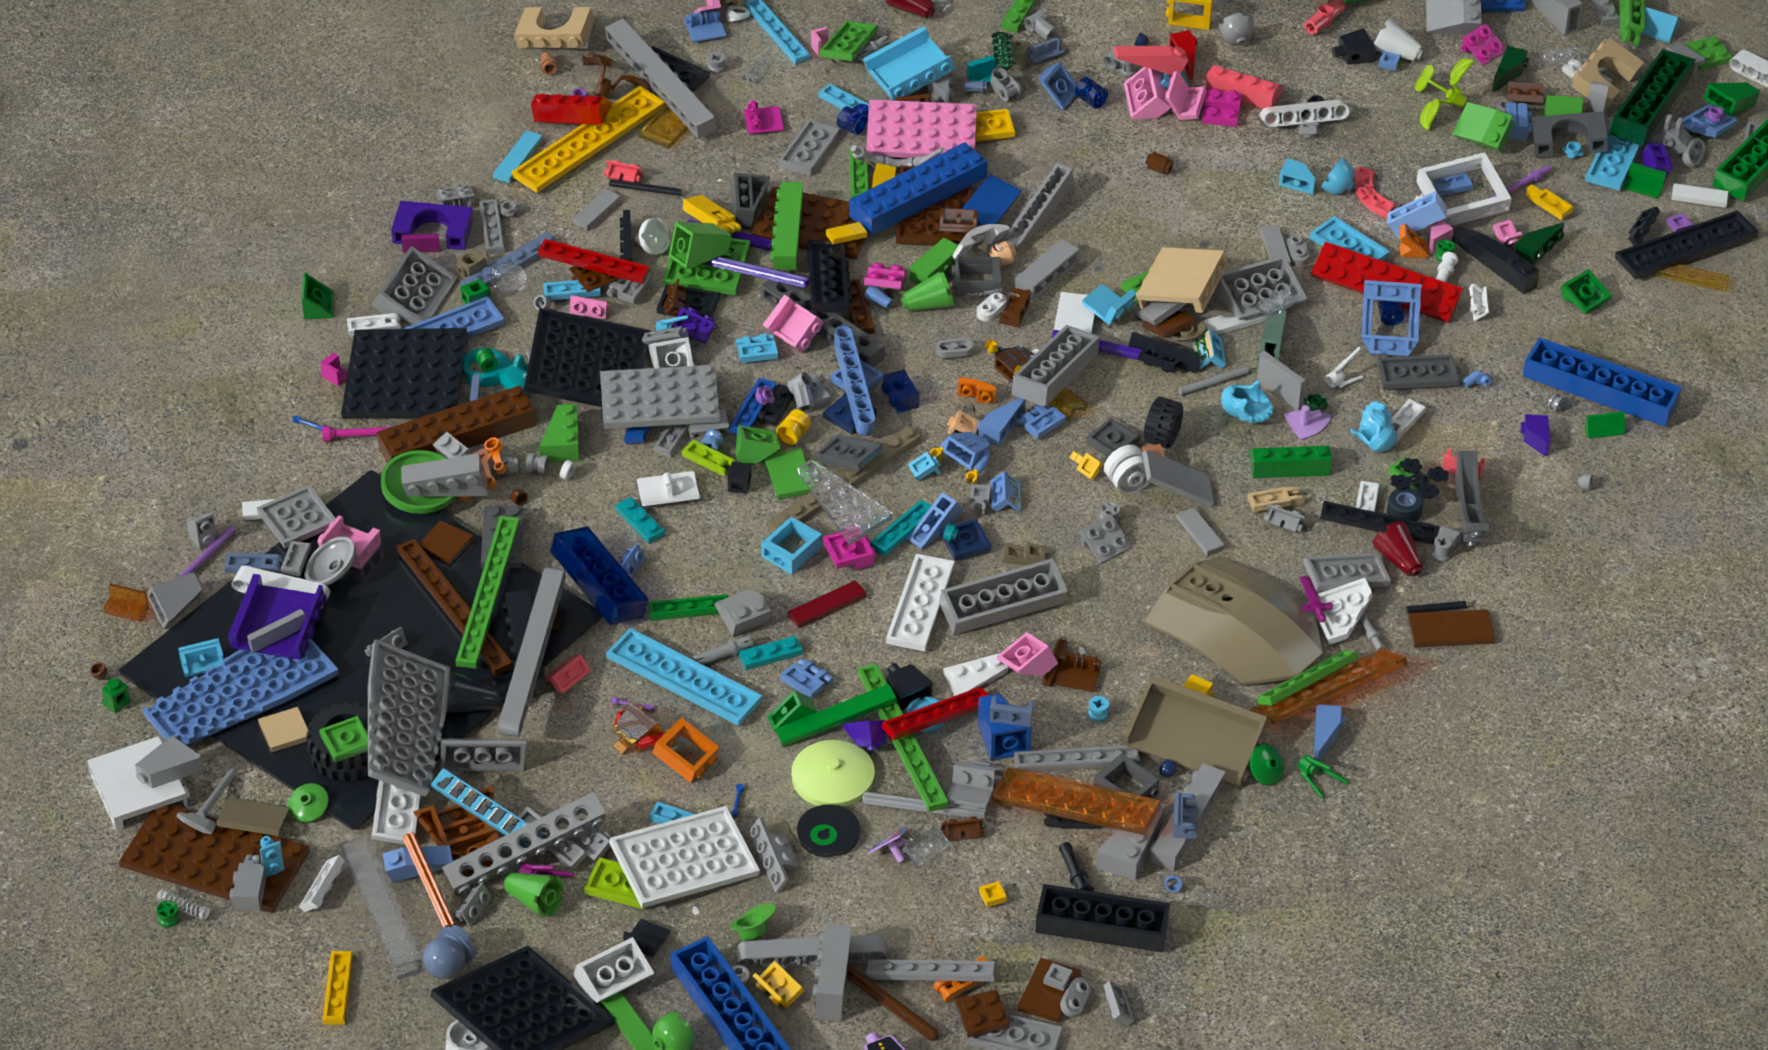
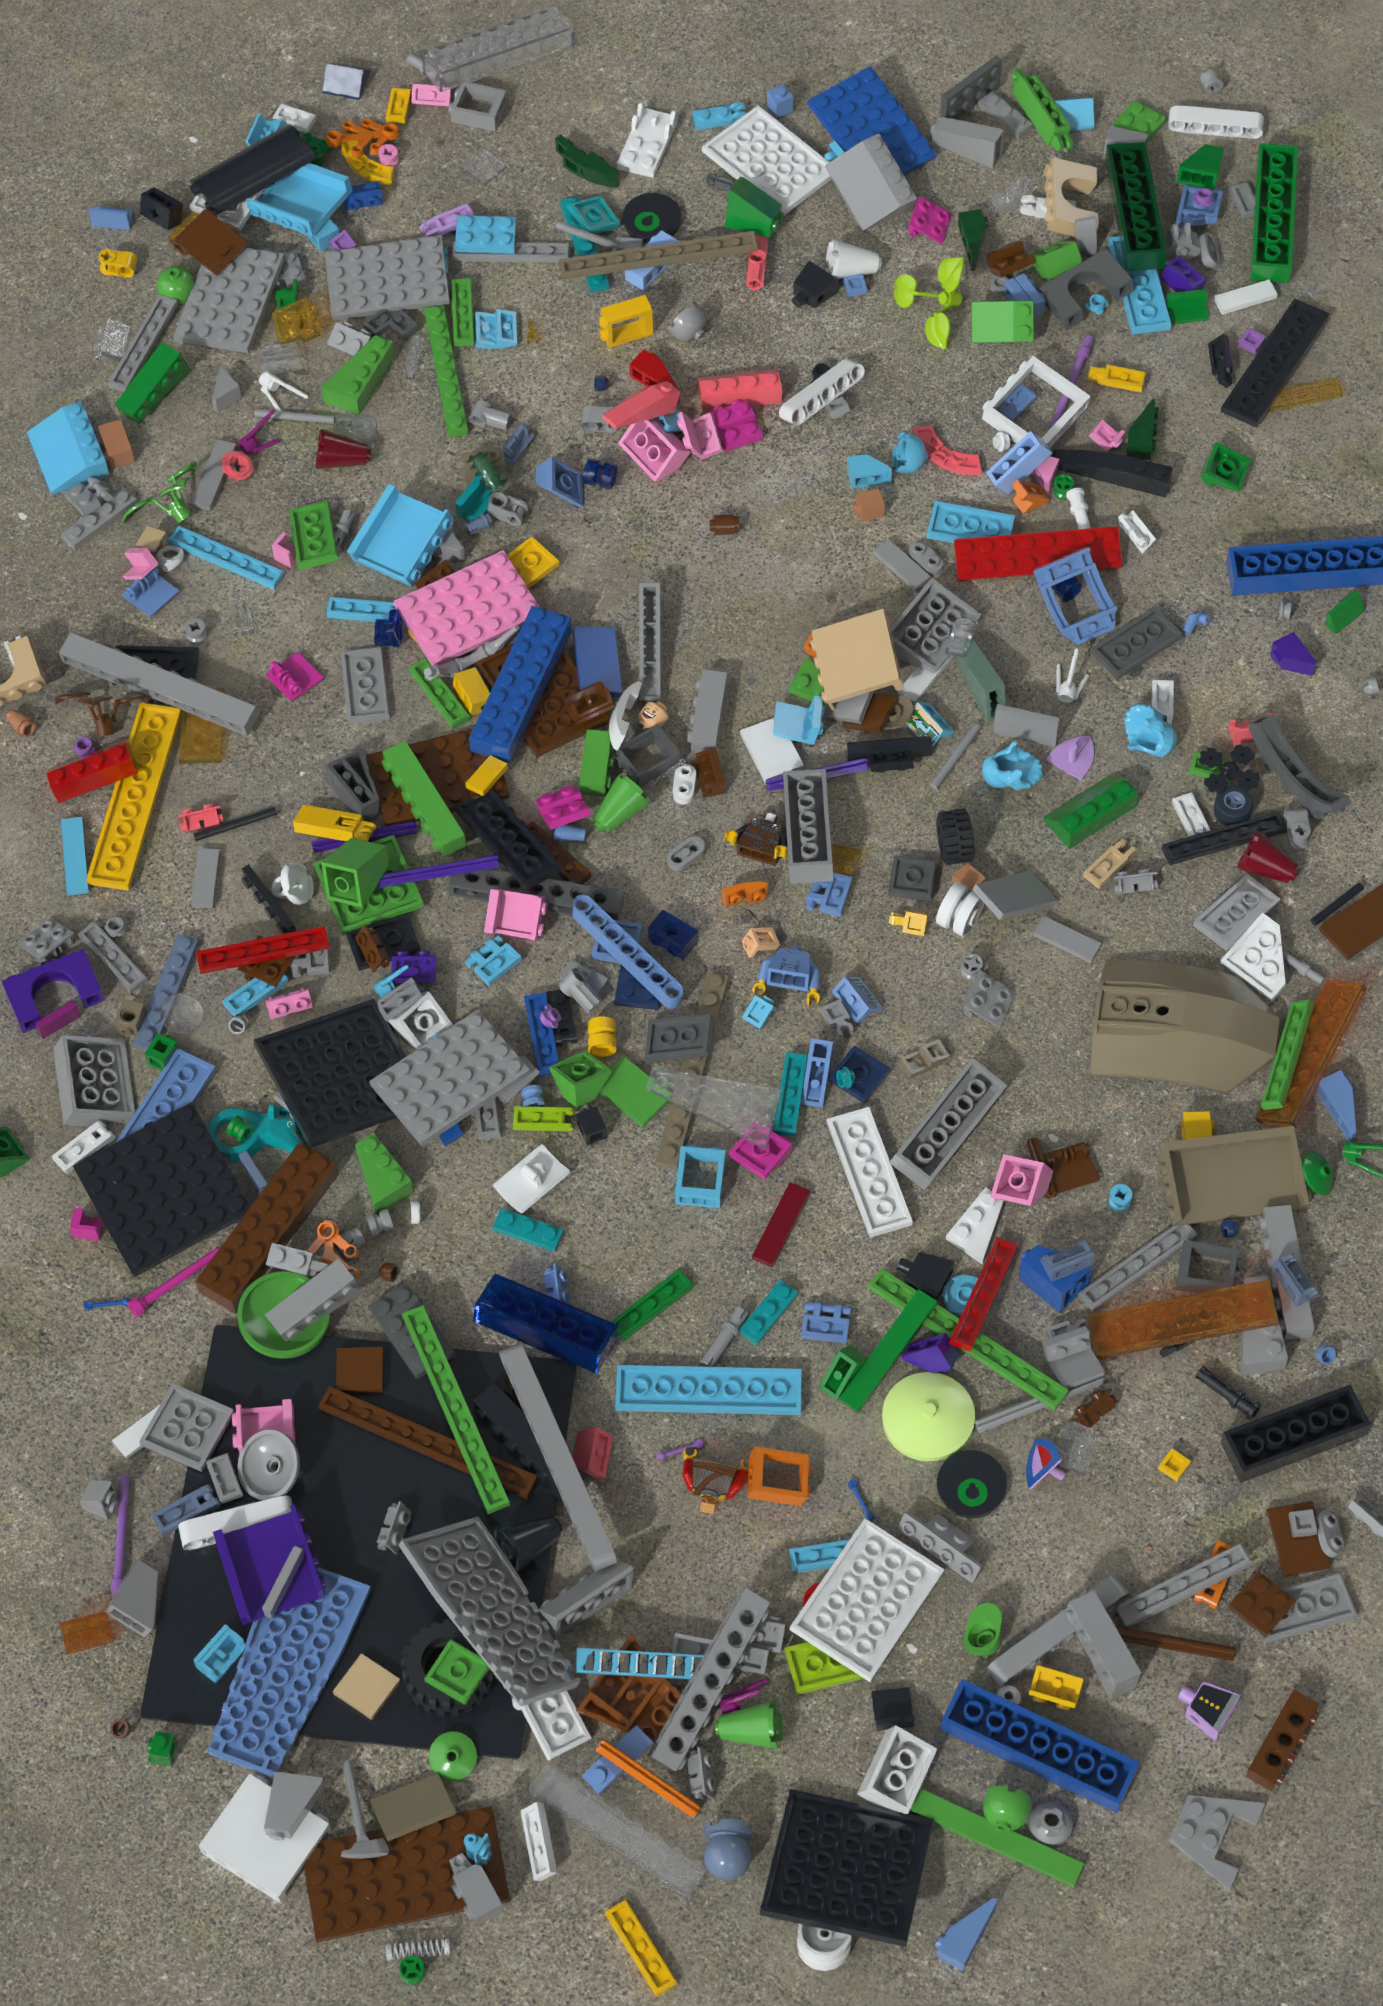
camera: 30 degrees left, 15 degrees up
(743, 611) = (711, 1280): light grey slope -> none
(1000, 421) = (793, 921): medium blue slope -> none
(1280, 197) = (869, 505): none -> nougat brick
(1315, 603) = (1239, 969): magenta sword -> none
(1316, 402) = (1070, 731): dark green plate -> none

